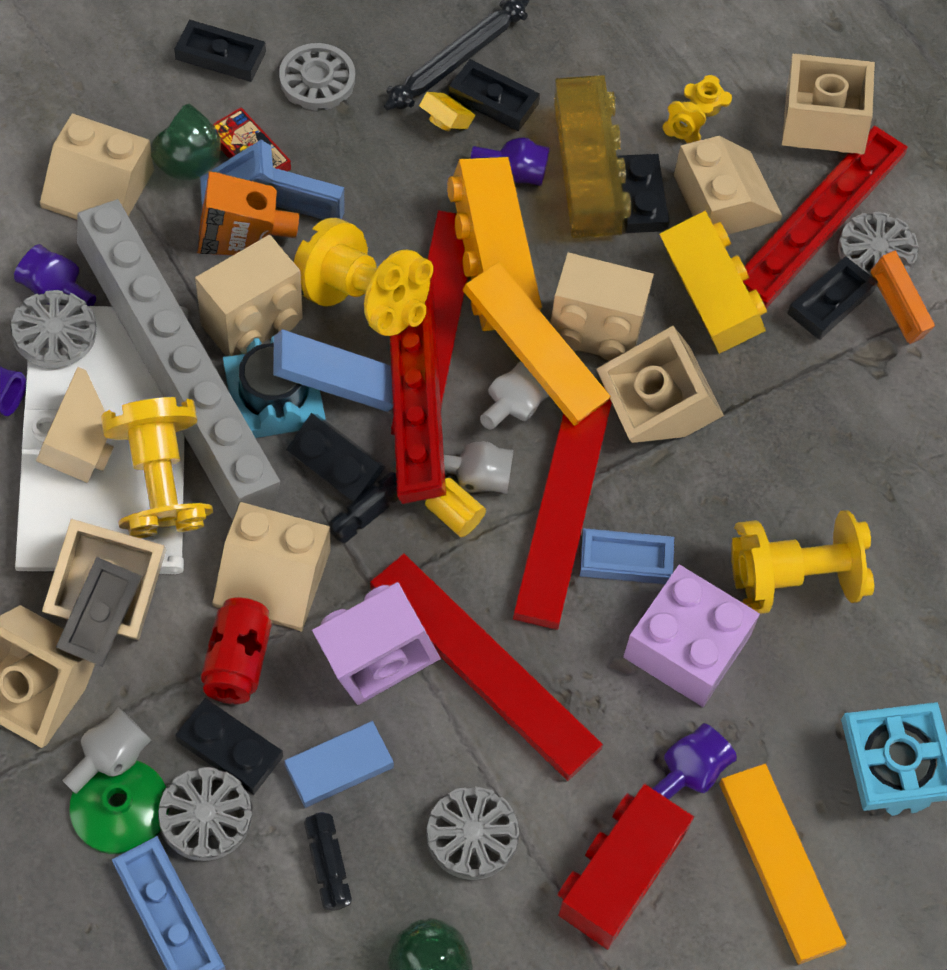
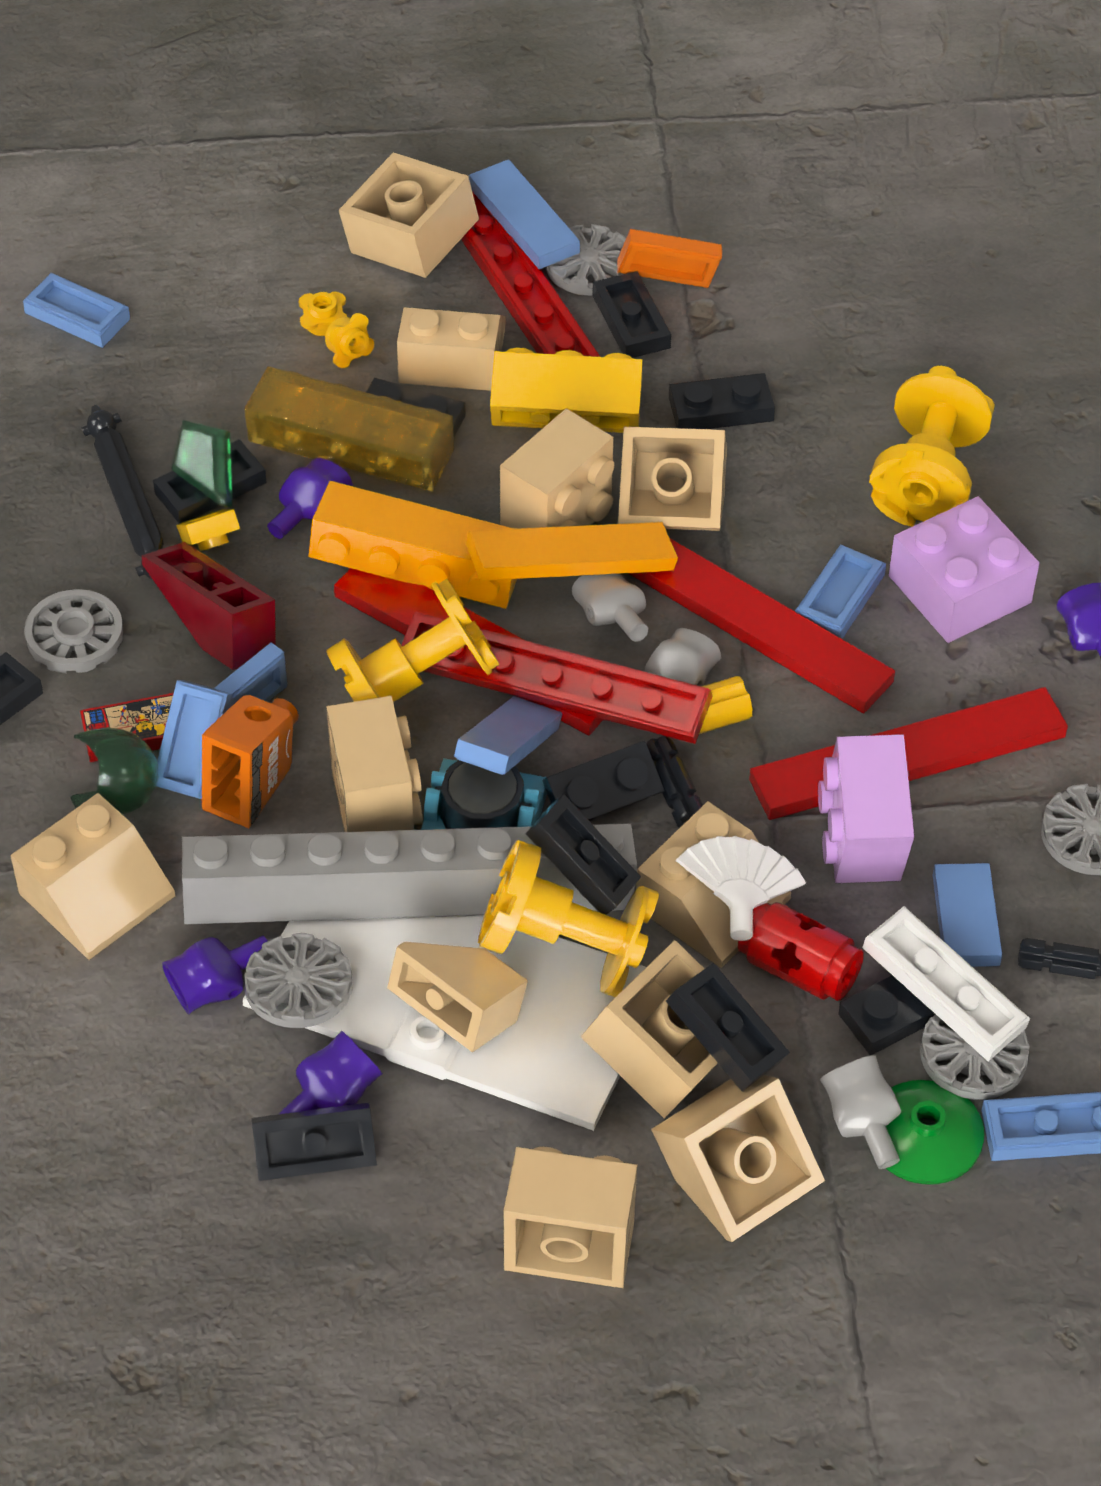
camera: 60 degrees left, 10 degrees down
(210, 452) = (583, 855): none -> black plate
(243, 765) = (946, 983): none -> white tile
(267, 575) = (741, 875): none -> white hand
(371, 140) = (216, 605): none -> dark red slope
(492, 76) = (205, 460): none -> clear green piece
(782, 398) = (722, 402): none -> black plate
(887, 181) = (524, 214): none -> medium blue tile

